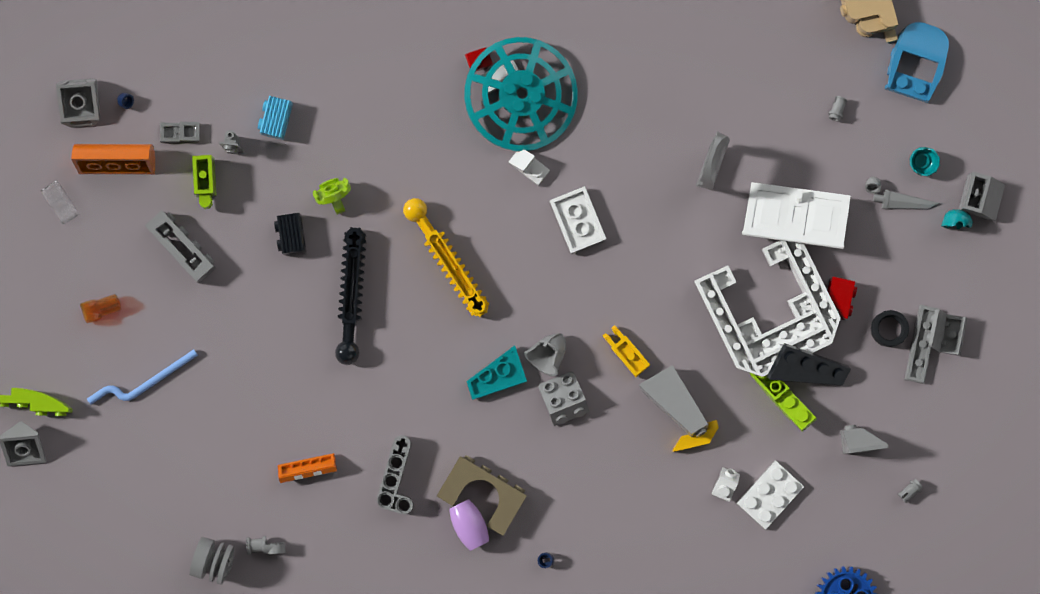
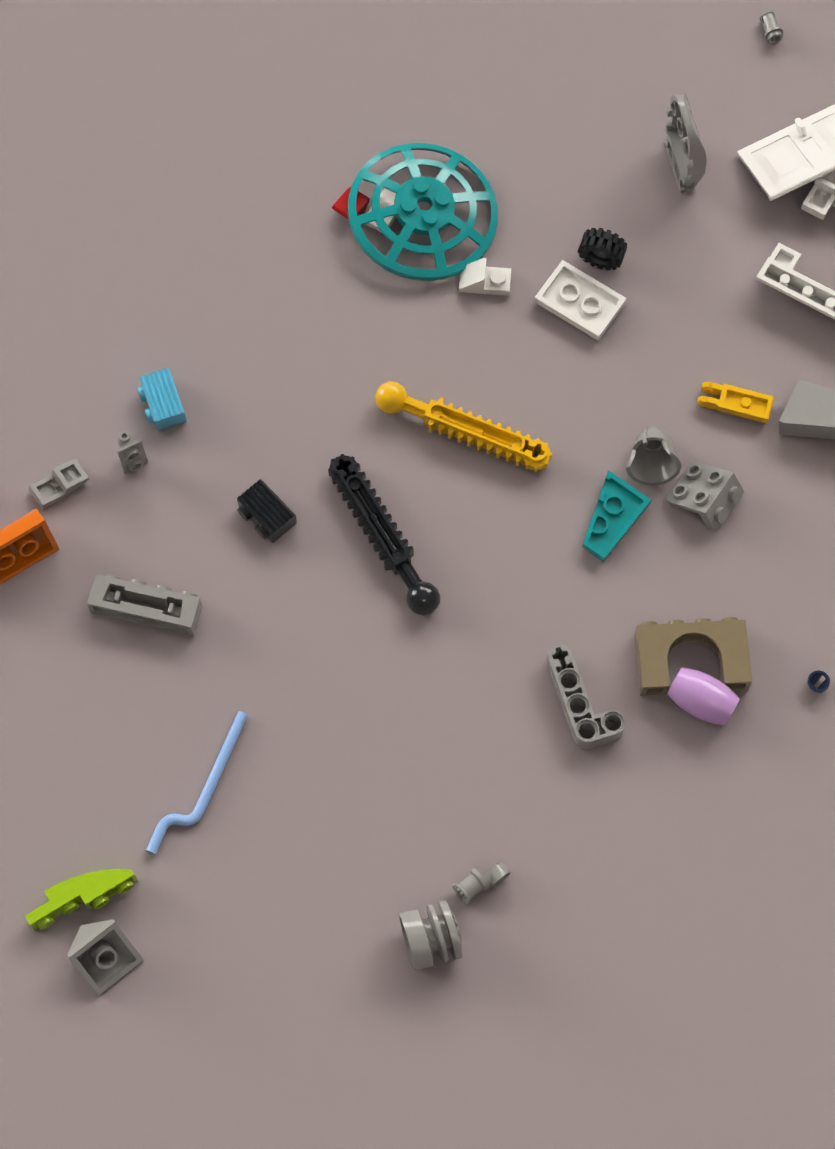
camera: 30 degrees left, 15 degrees down
(95, 309) = (88, 740): clear orange piece -> none
(204, 179) = (124, 511): lime brick -> none
(307, 468) = (467, 758): orange plate -> none
(332, 192) = (286, 436): lime tile -> none
(613, 196) = (602, 249): none -> black tyre

